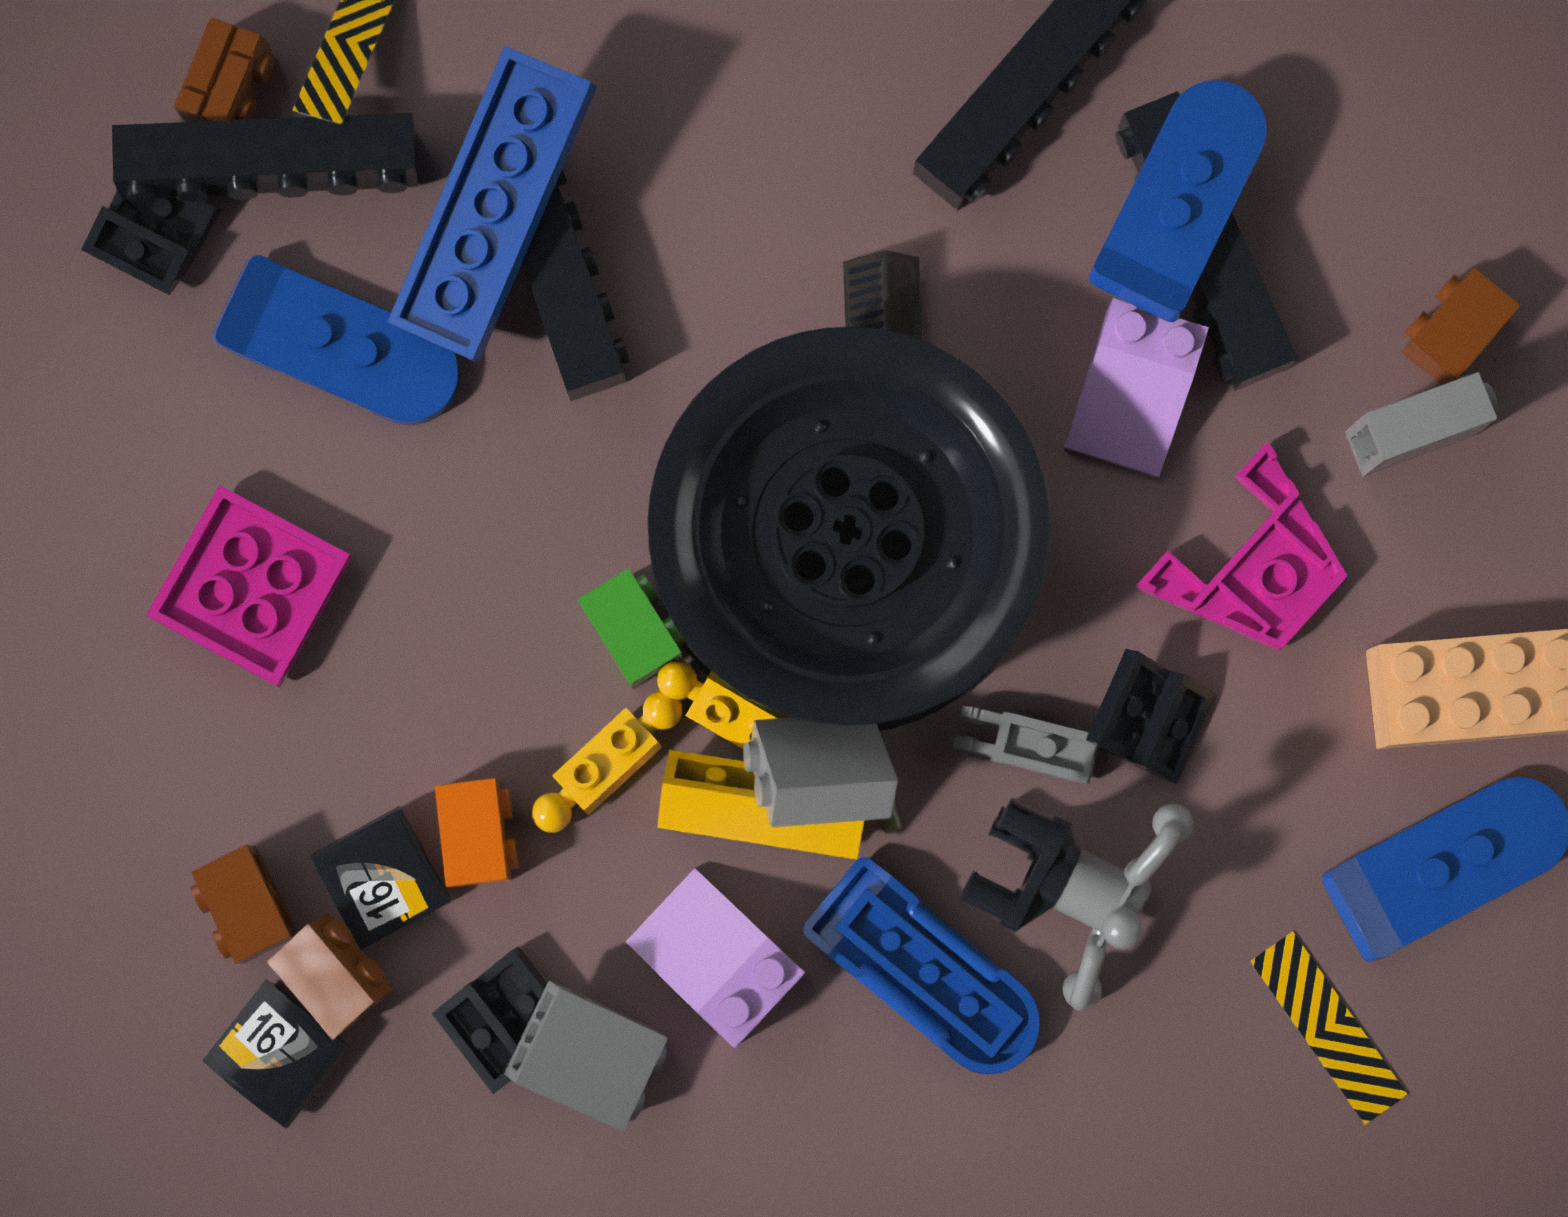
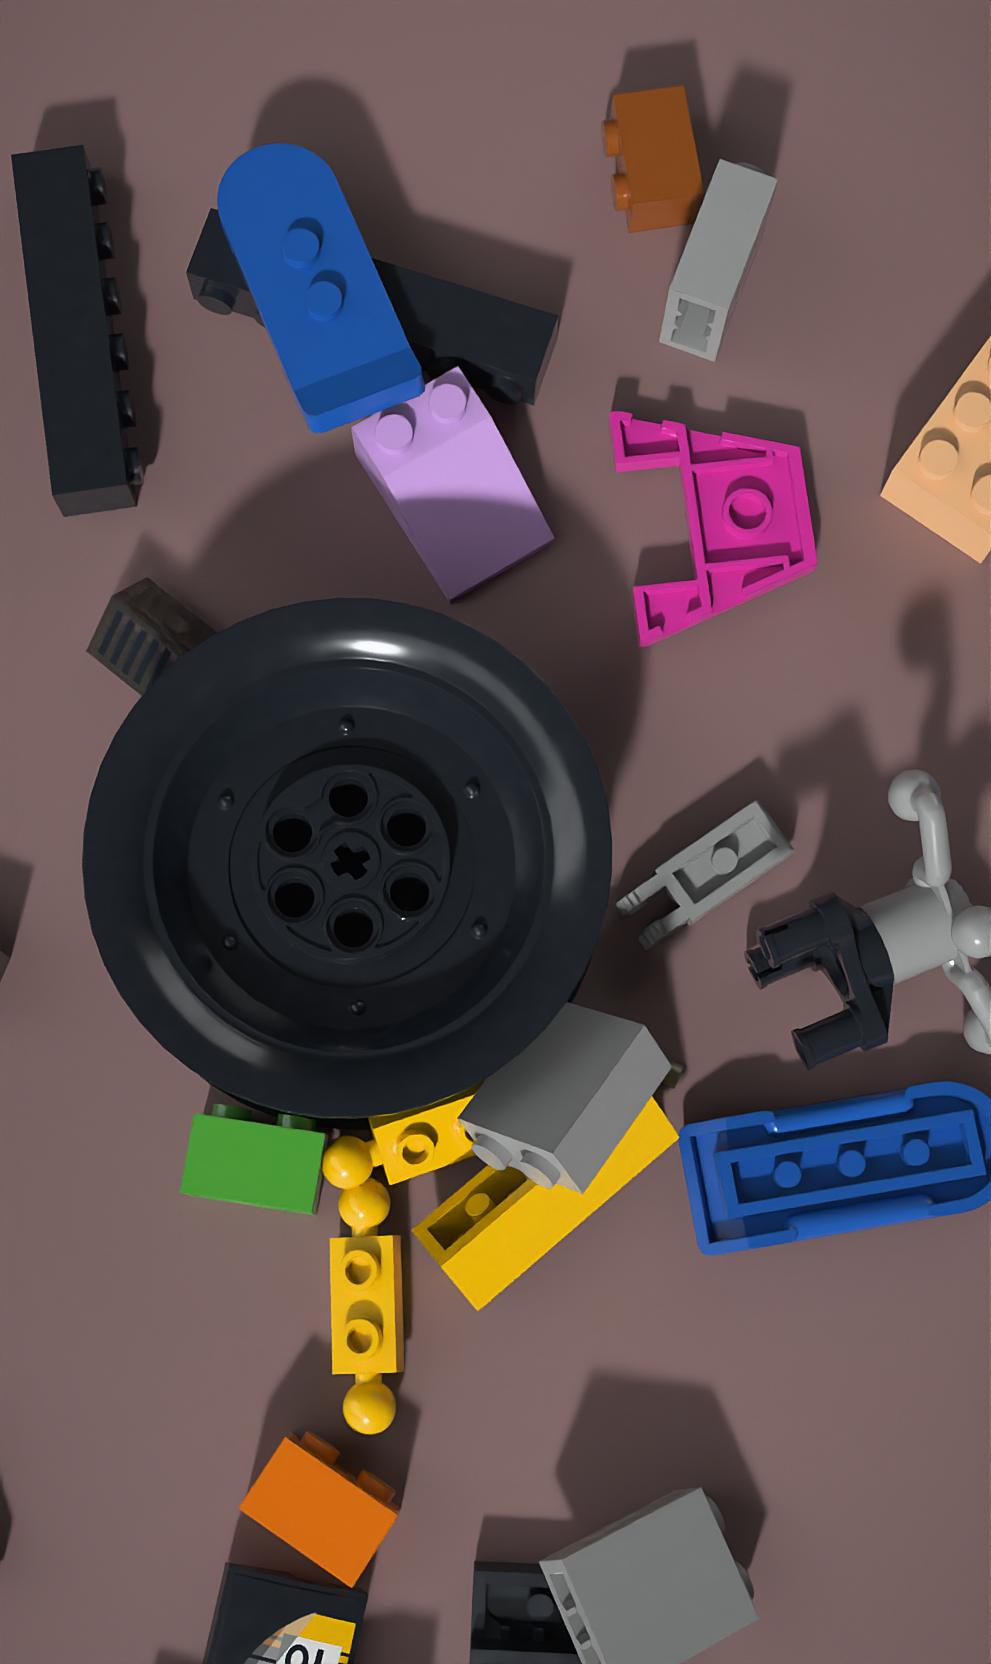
camera: 50 degrees left, 5 degrees down
(715, 958) = (659, 1367): lavender slope -> none
(1150, 716) = (777, 737): black slope -> none

